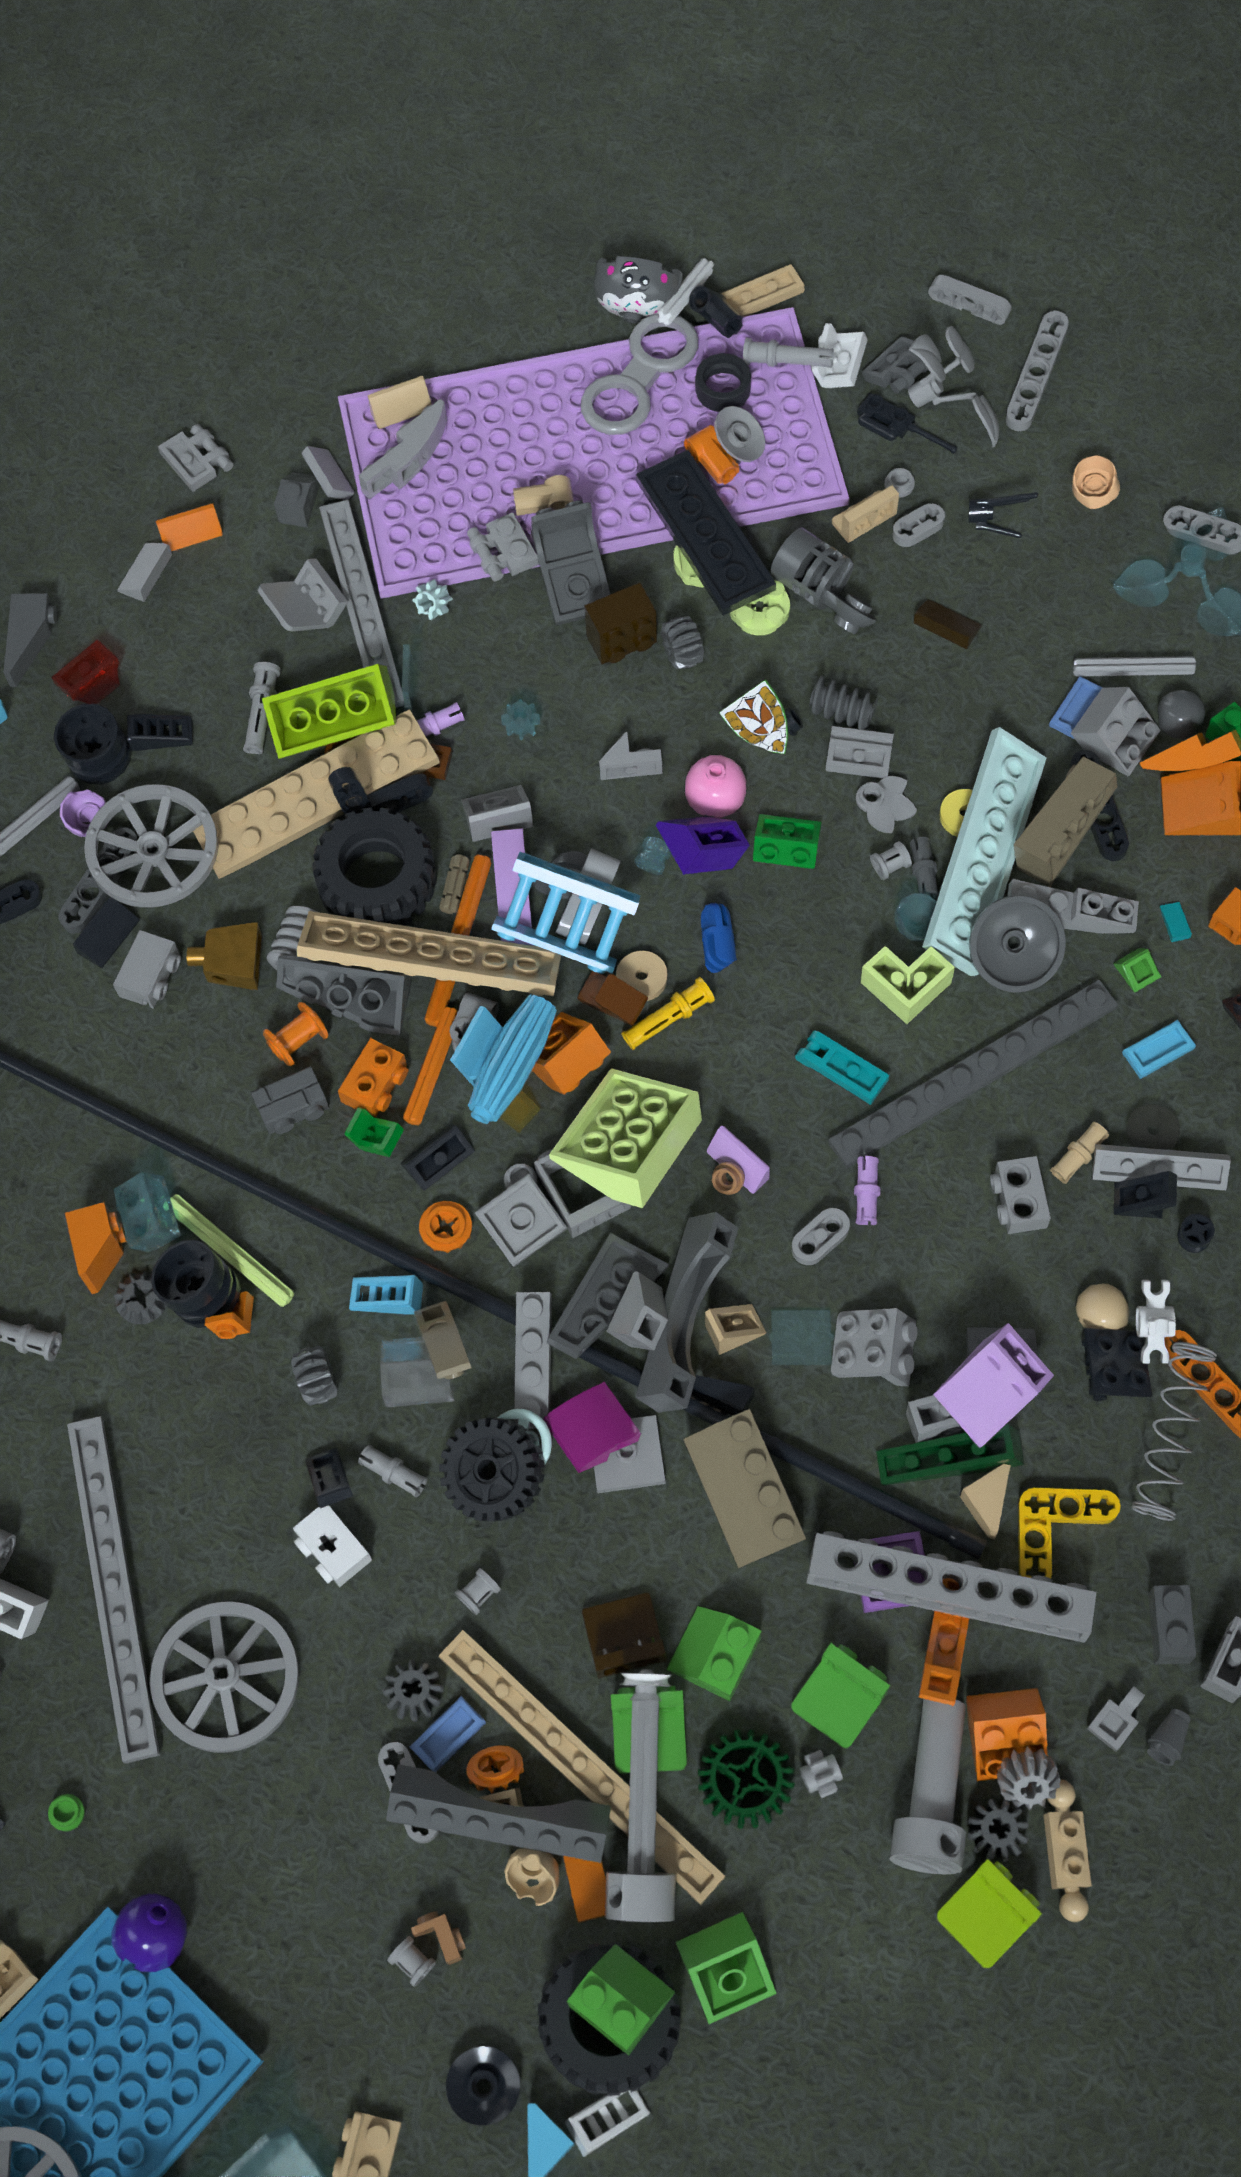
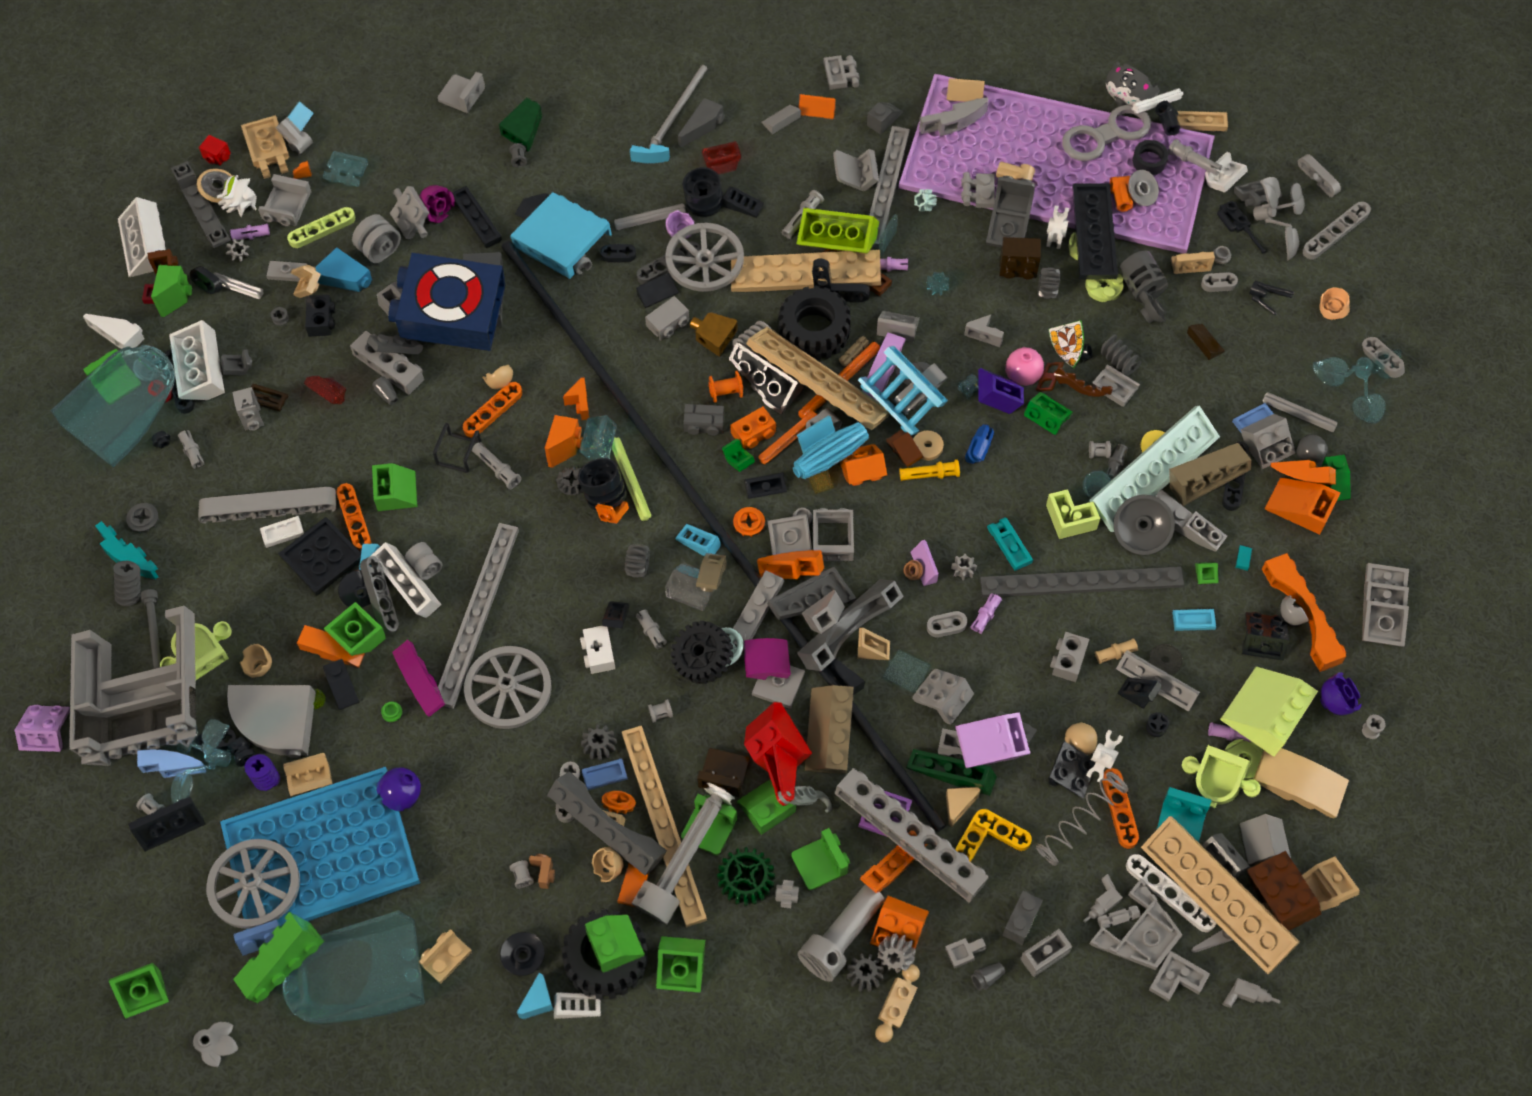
camera: 25 degrees right, 5 degrees down
(77, 1159) = (578, 395): none -> orange slope
(80, 1739) = (418, 678): none -> magenta slope
(327, 473) = (906, 110): light grey tile -> none
(548, 1262) = (792, 564): none -> orange slope
(628, 1135) = (871, 520): yellowish green slope -> none
(650, 551) = (1057, 227): none -> white pin
(690, 1561) = (779, 750): none -> red slope
(793, 775) = (1069, 379): none -> reddish brown piece
(800, 1145) = (964, 571): none -> light grey gear
(890, 803) = (1116, 421): light grey plate -> none
(989, 1913) = (836, 1012): lime bracket -> none

